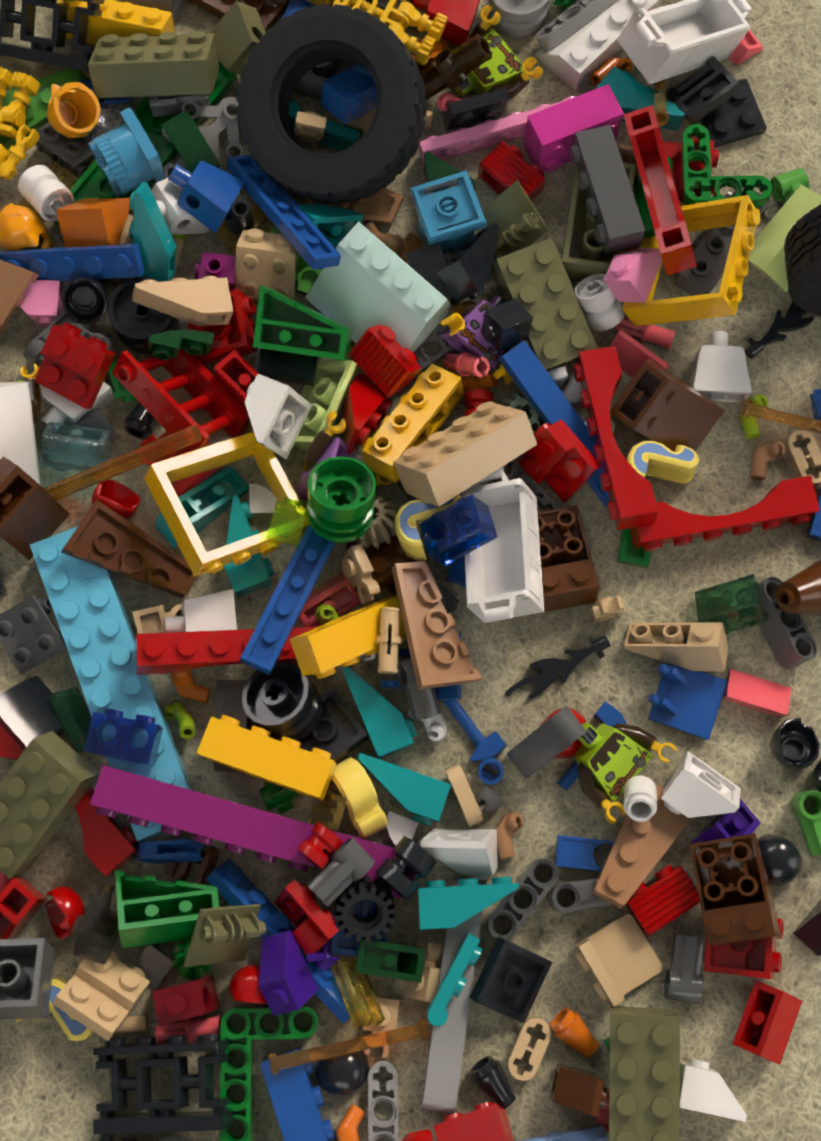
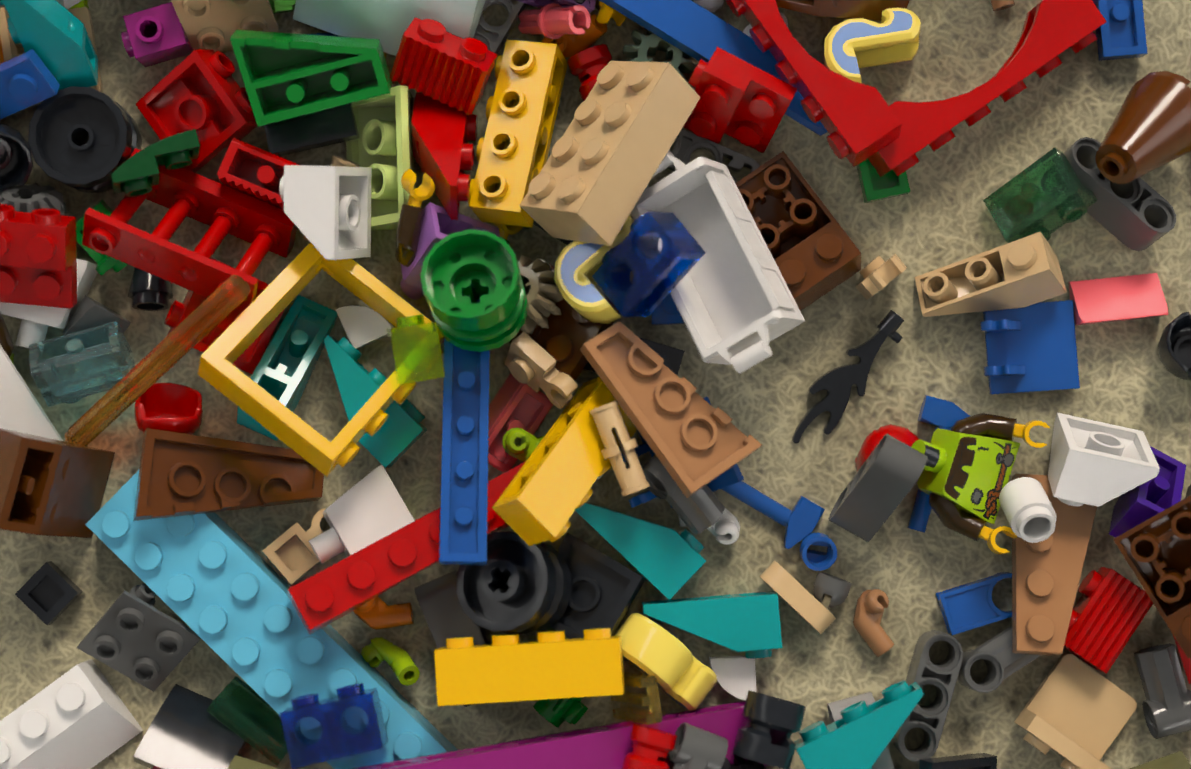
camera: 25 degrees left, 10 degrees up
(193, 301) = (146, 97): tan slope -> none
(464, 850) = (827, 668): white slope -> none

